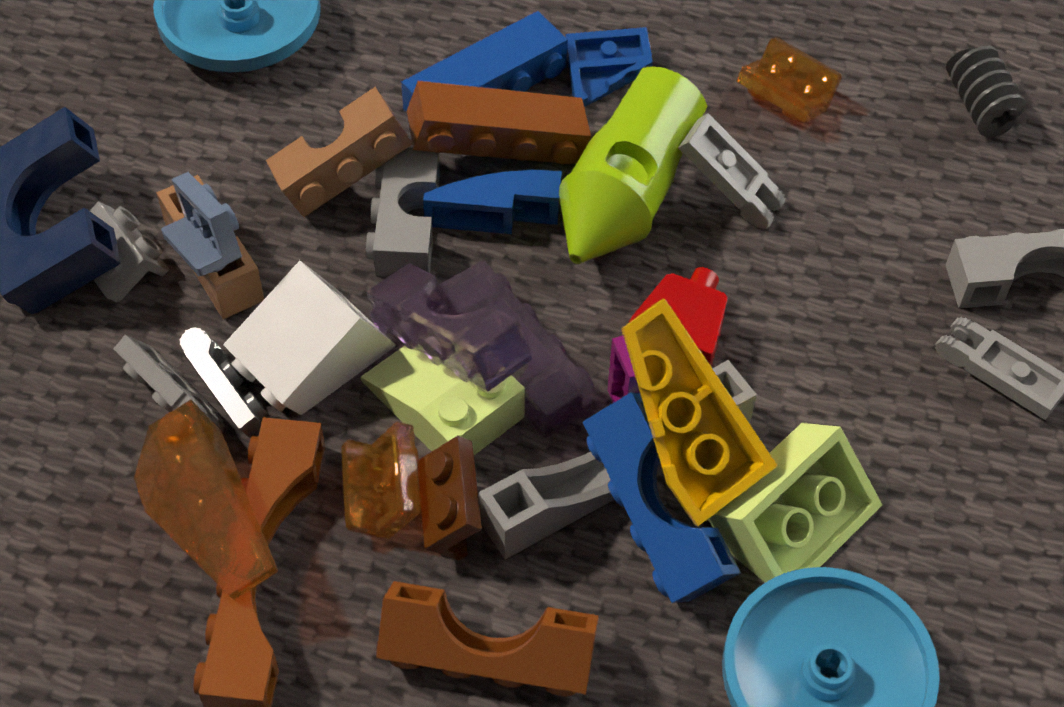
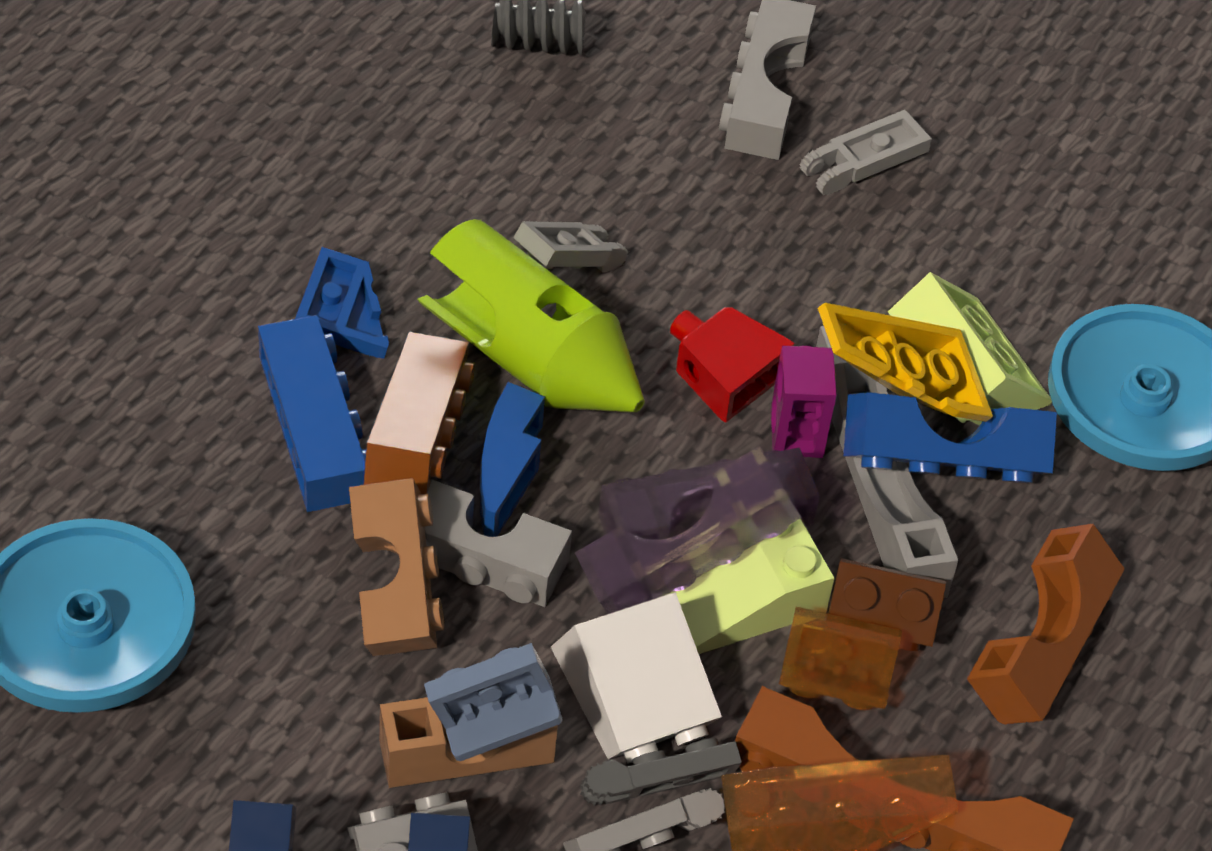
camera: 75 degrees left, 5 degrees down
(791, 81) = (452, 162): clear orange bracket -> none

